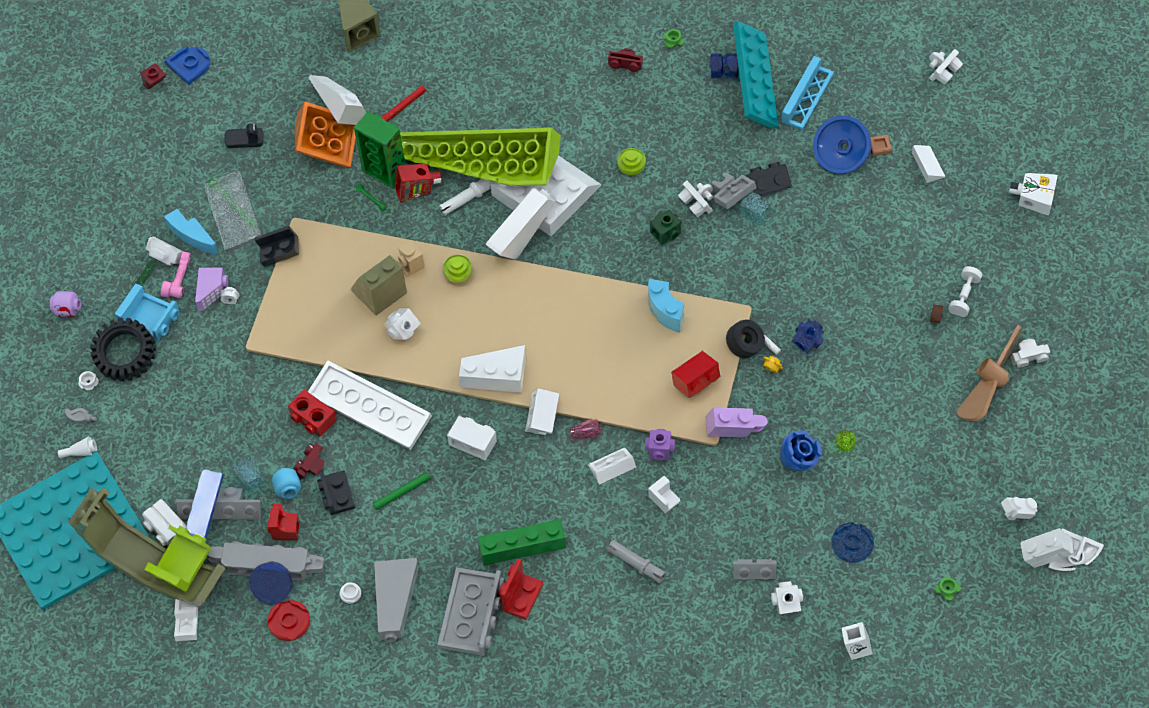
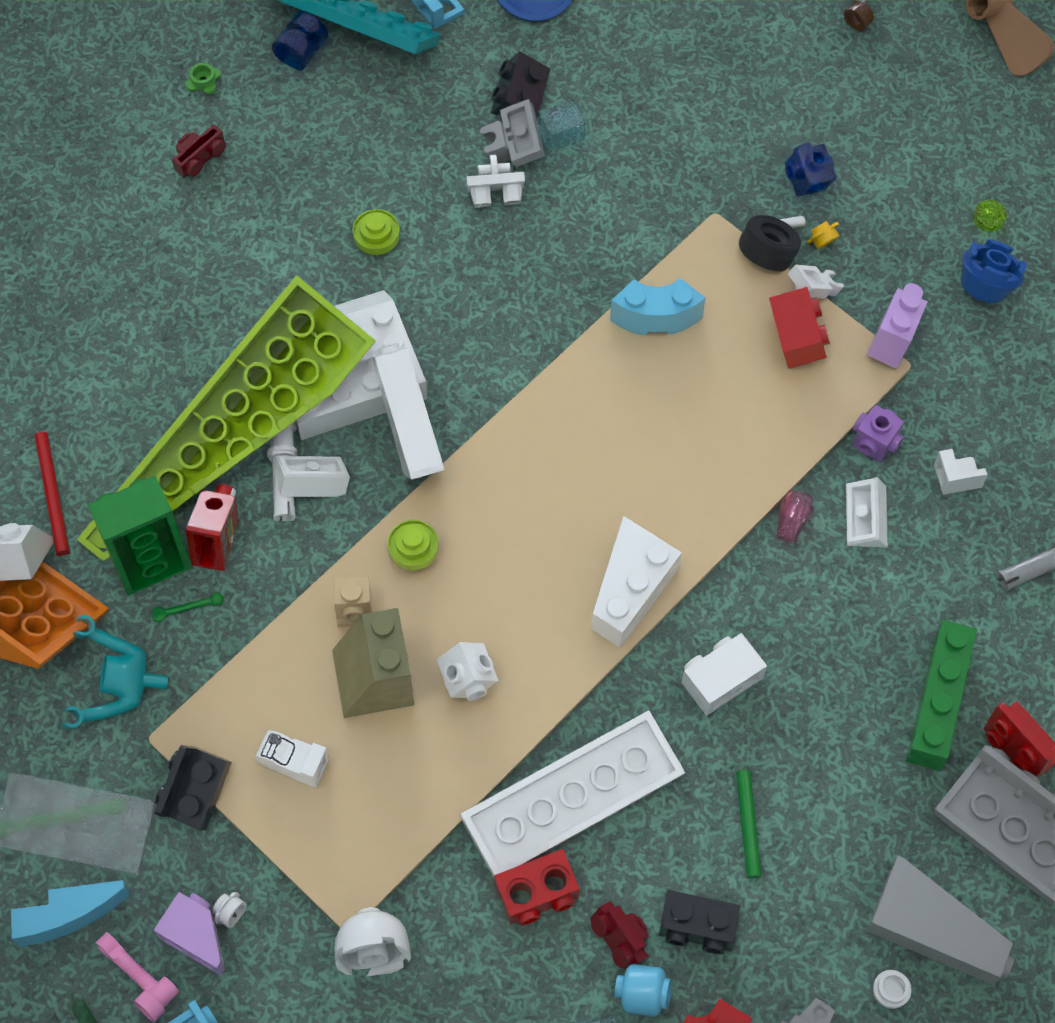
camera: 65 degrees left, 5 degrees up
(163, 251) = (72, 975): white piece -> none
(244, 357) = (371, 941): none -> white cylinder
(315, 188) = (120, 676): none -> teal piece
(315, 278) = (293, 757): none -> white leg
(470, 207) = (311, 476): none -> white slope
(542, 412) = (735, 557): white hinge -> none
(665, 227) = (521, 244): dark green brick -> none
(733, 371) = (818, 283): none -> white plate

